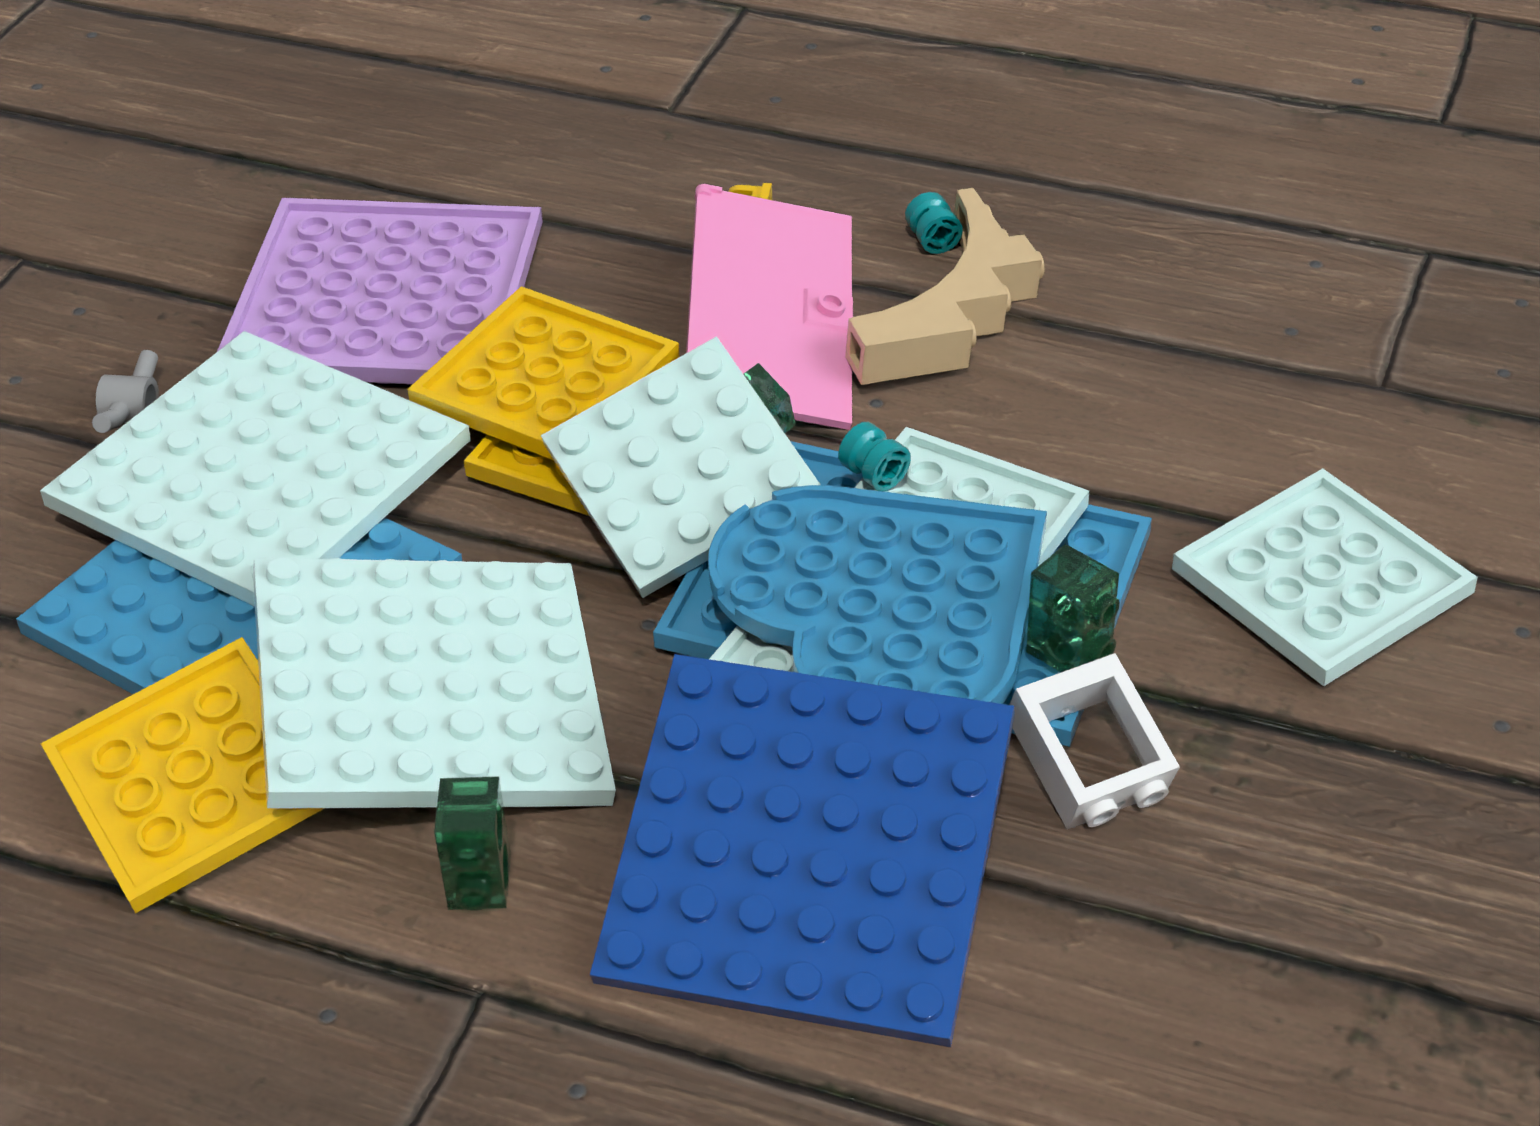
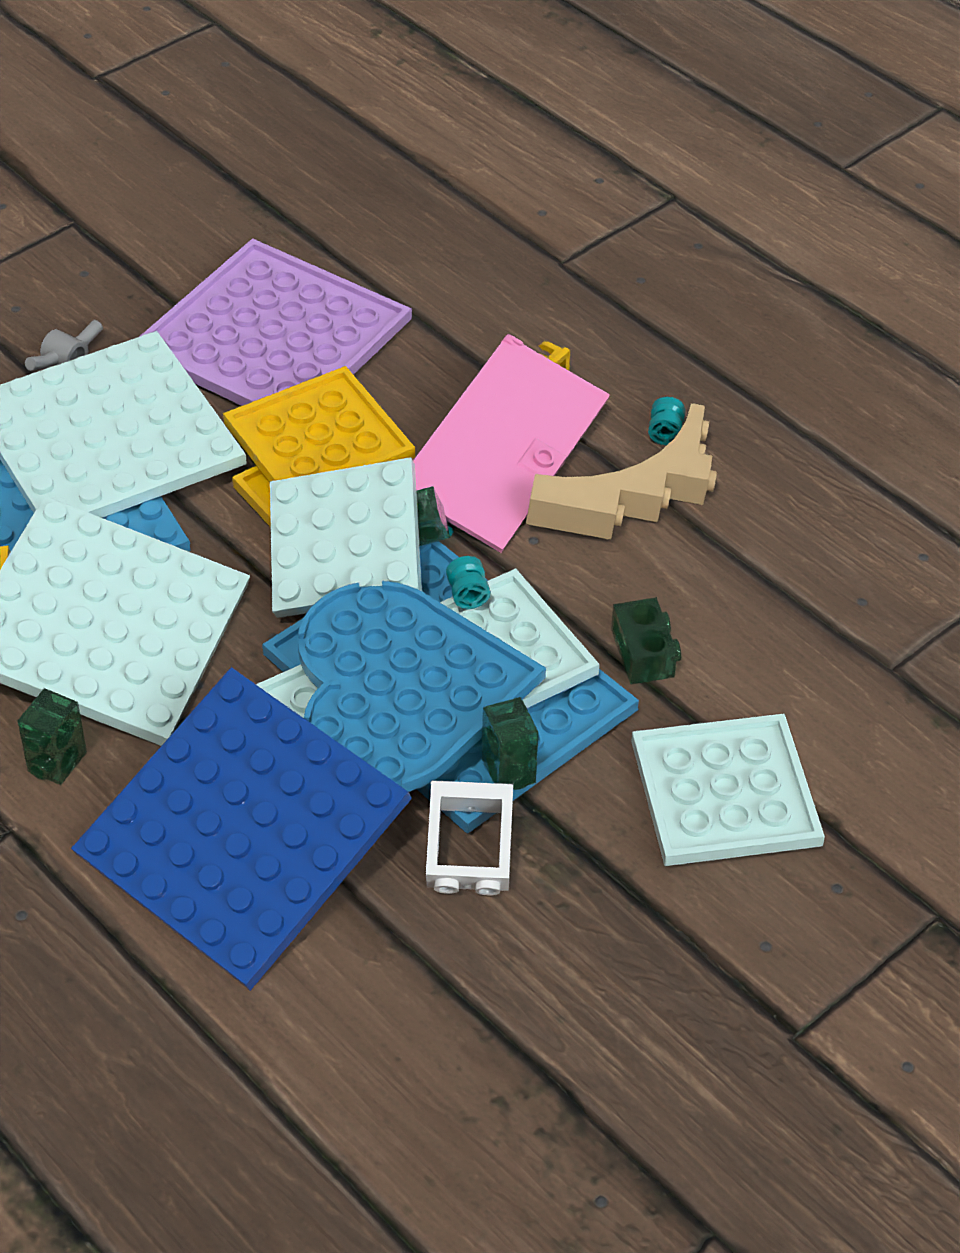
camera: 25 degrees right, 5 degrees up
(1102, 454) = (645, 640): none -> clear green brick

